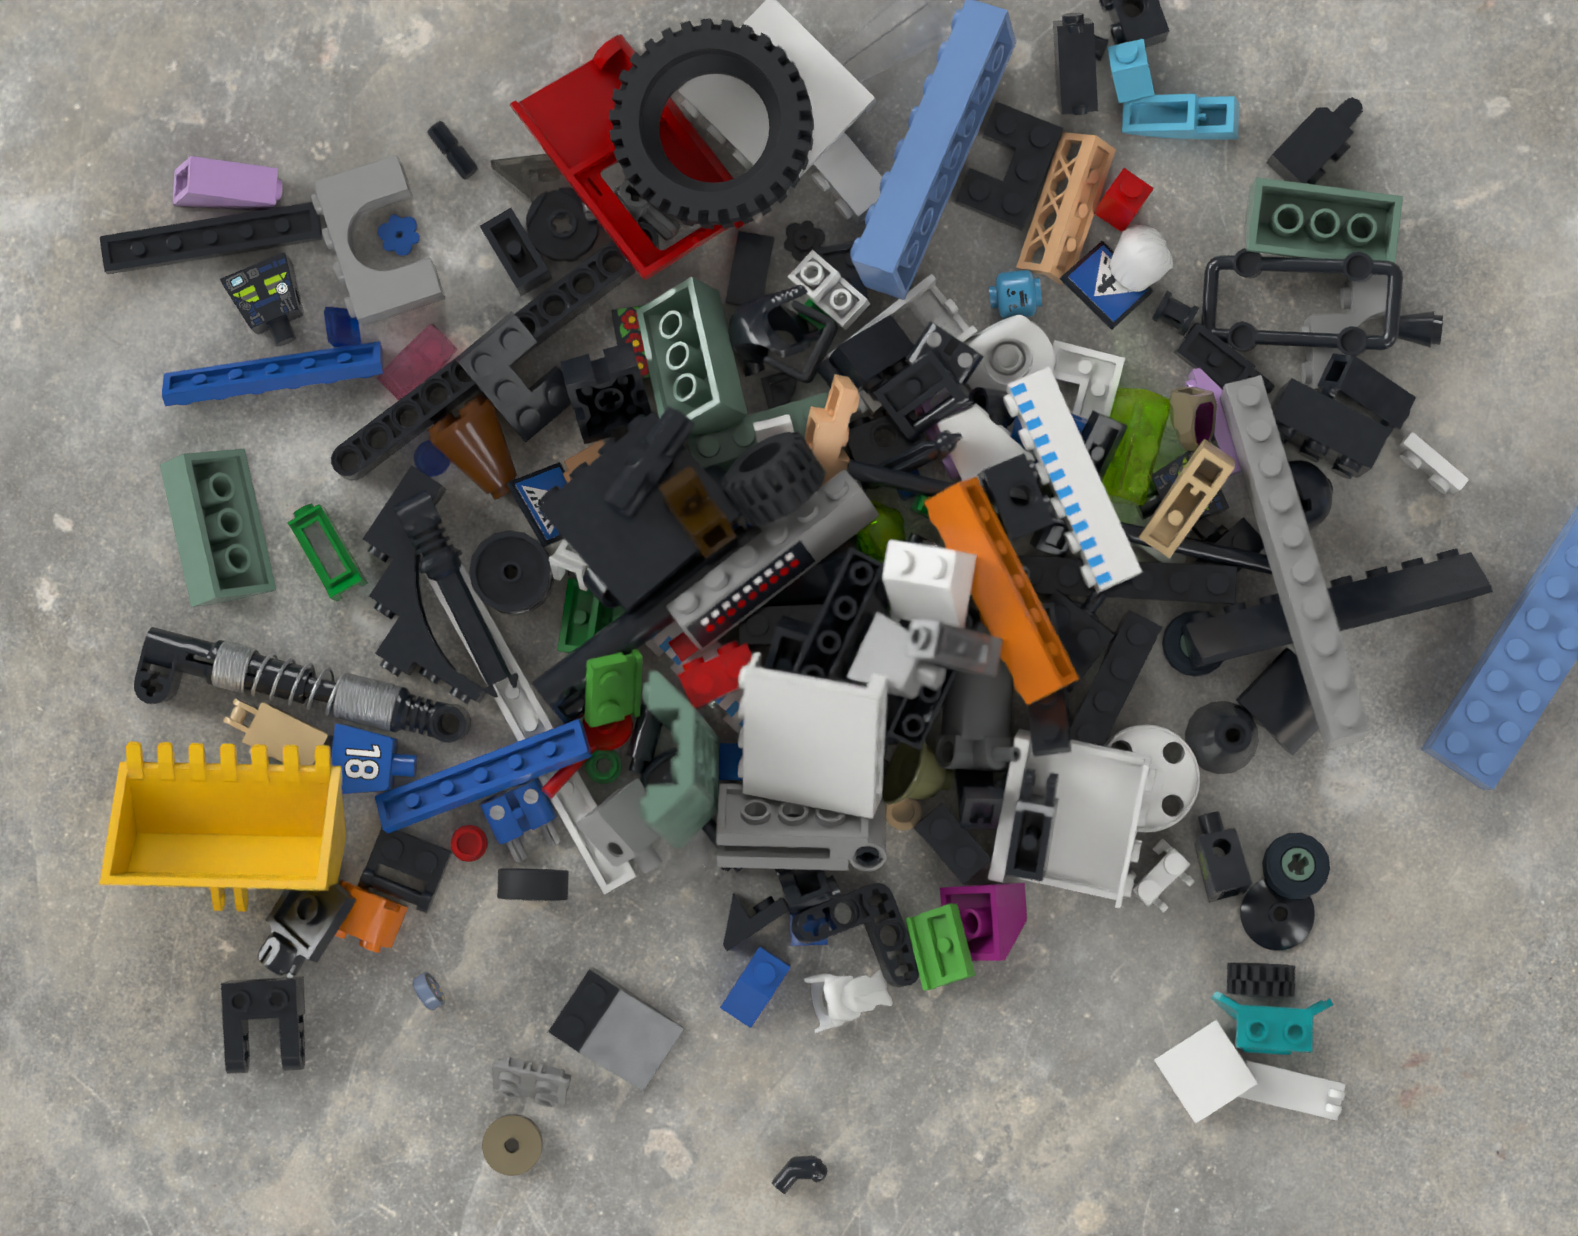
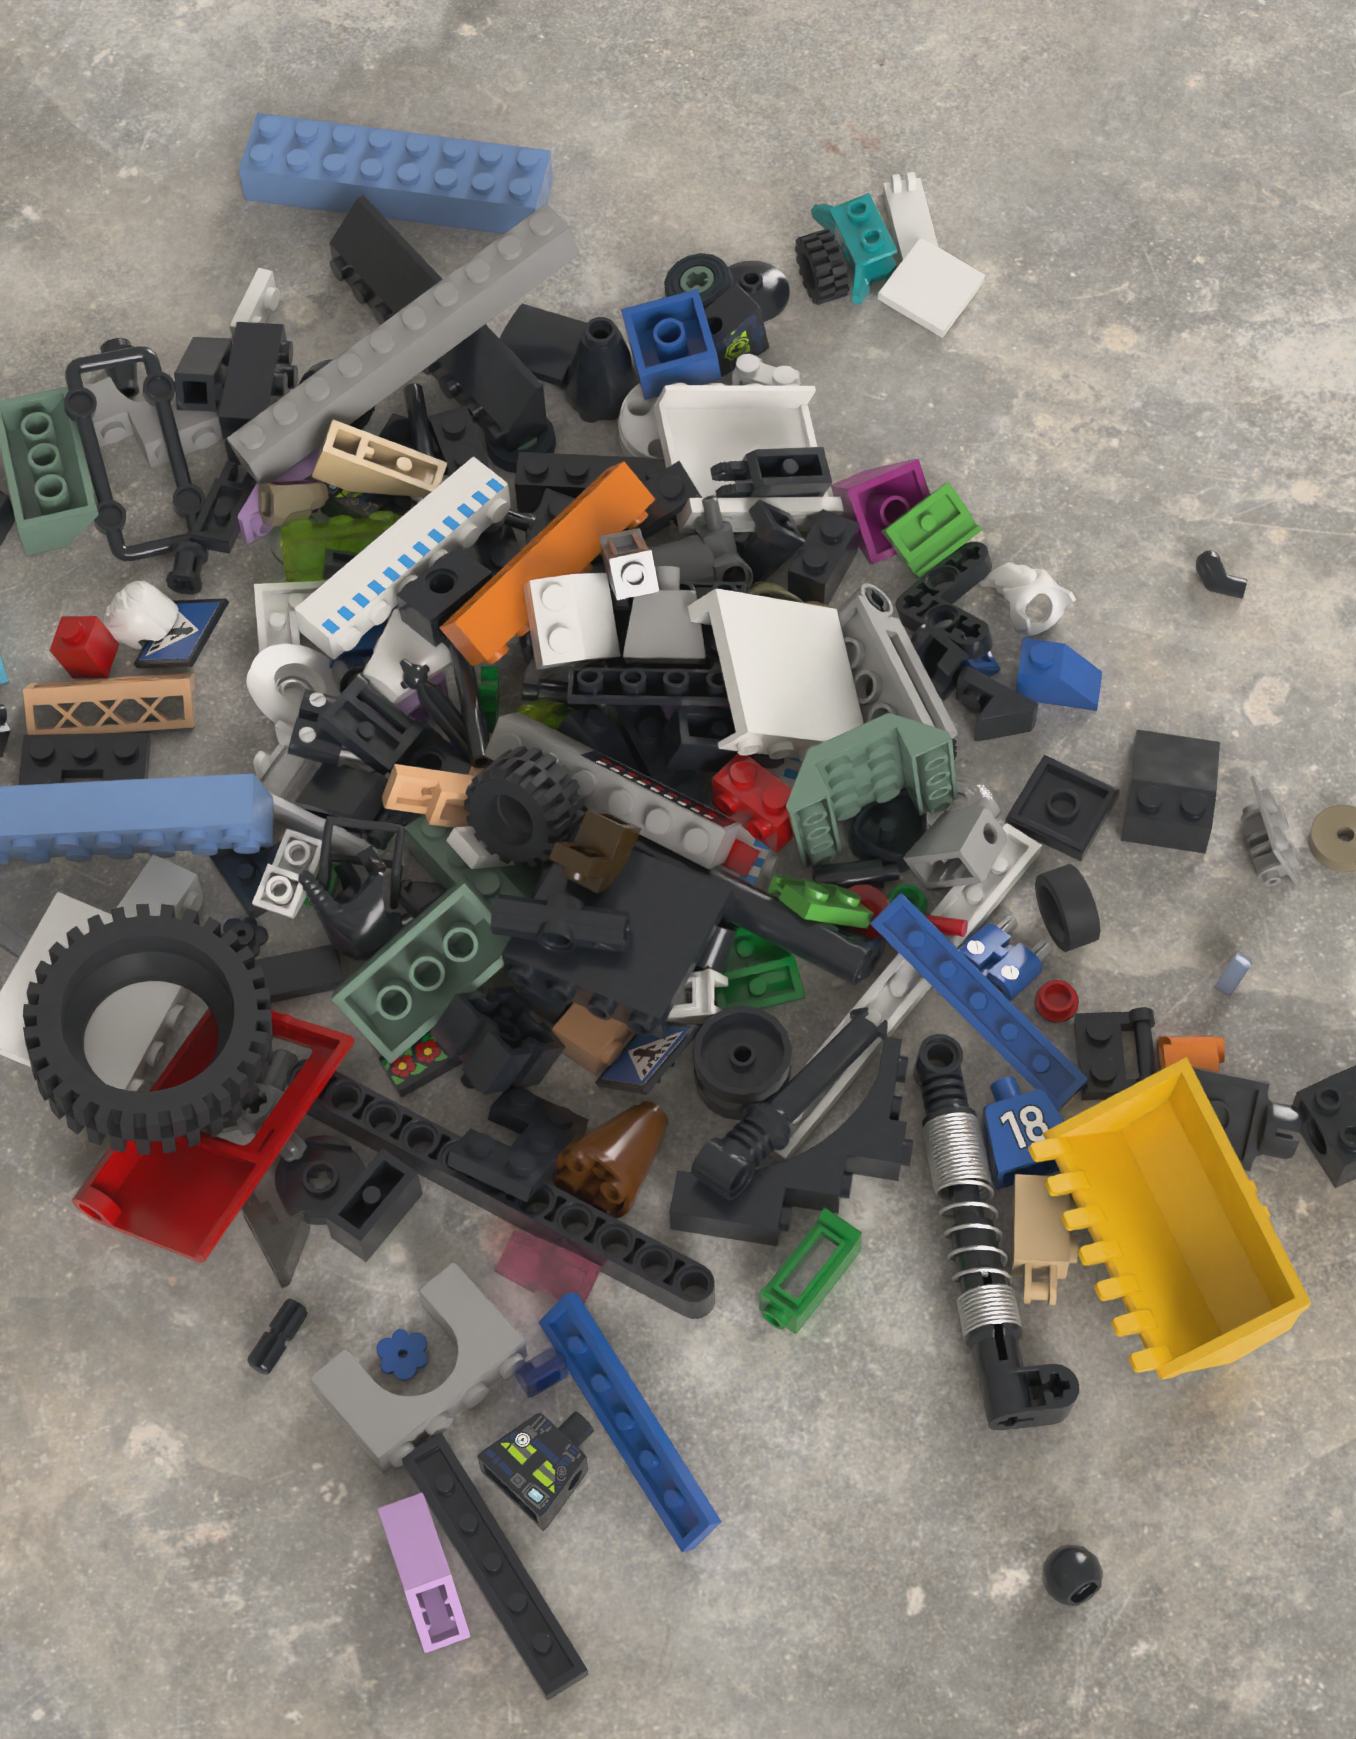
camera: 115 degrees left, 25 degrees down
(22, 635) = (1072, 1574): none -> black piece
(217, 526) = (838, 1407): sand green slope -> none
(430, 459) = (650, 1210): clear blue plate -> none
(635, 930) = (1062, 807): none -> black plate
(1016, 294) = (224, 708): dark azure head -> none
(1206, 796) = (671, 343): none -> blue brick

